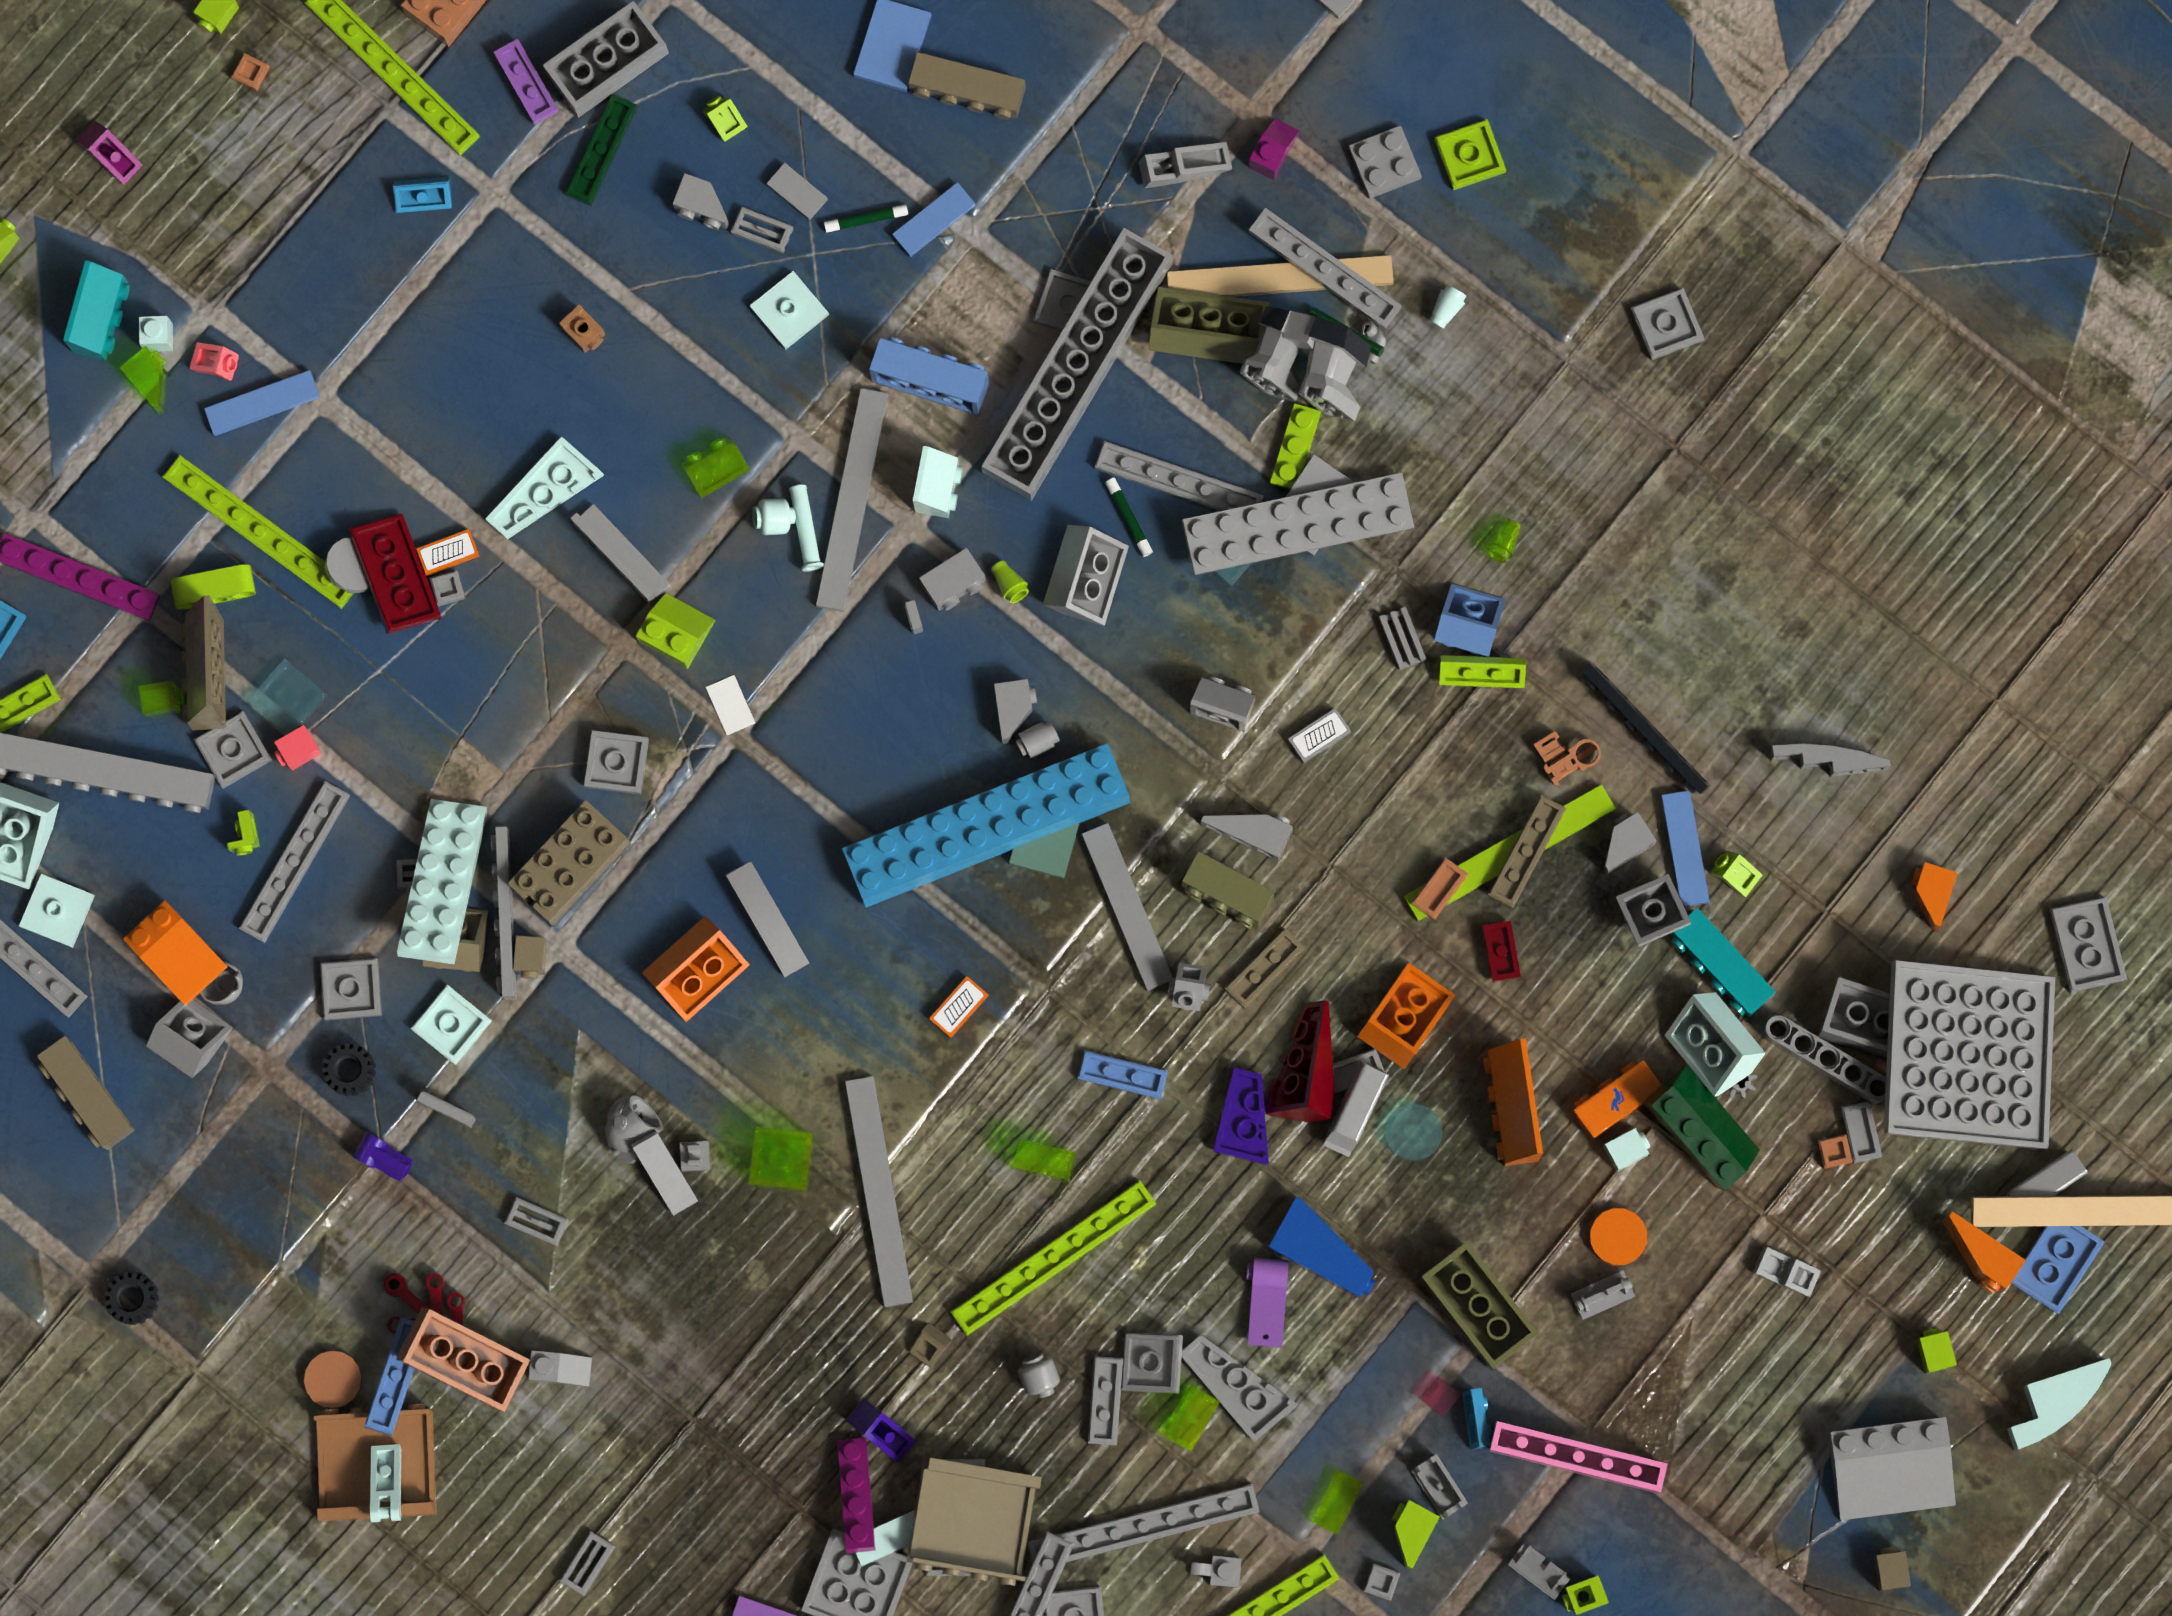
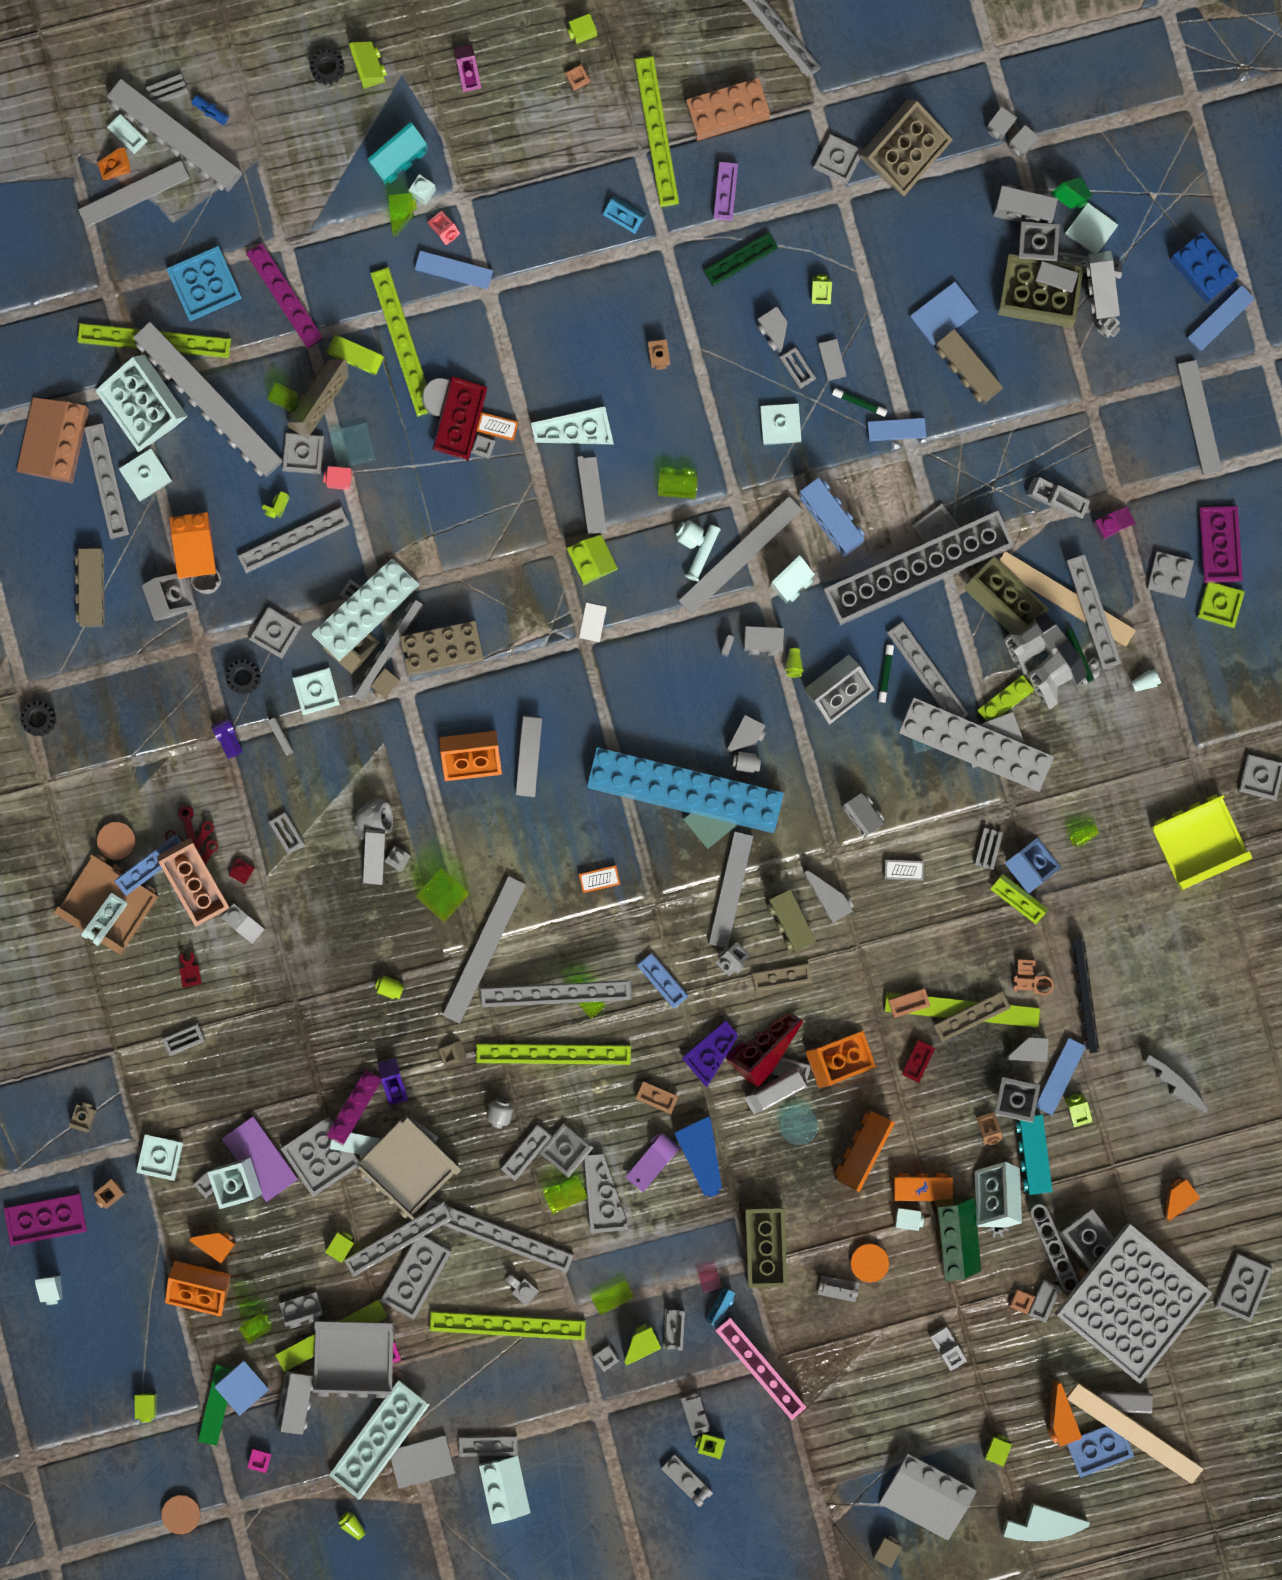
camera: 25 degrees right, 5 degrees up
(514, 1307) = (241, 871): none -> dark red plate
(538, 1476) = (190, 974): none -> dark red plate
(605, 59) = (778, 210): light grey brick -> none
(616, 762) = (507, 610): light grey plate -> none
(795, 1319) = (389, 987): none -> lime brick
(1004, 1179) = (556, 993): none -> light grey tile
(1217, 1220) = (657, 1097): none -> medium nougat plate
(1418, 84) = (1220, 544): none -> magenta tile
(1646, 971) = (989, 1128): none -> medium nougat bracket
(1649, 451) = (1200, 842): none -> neon yellow panel

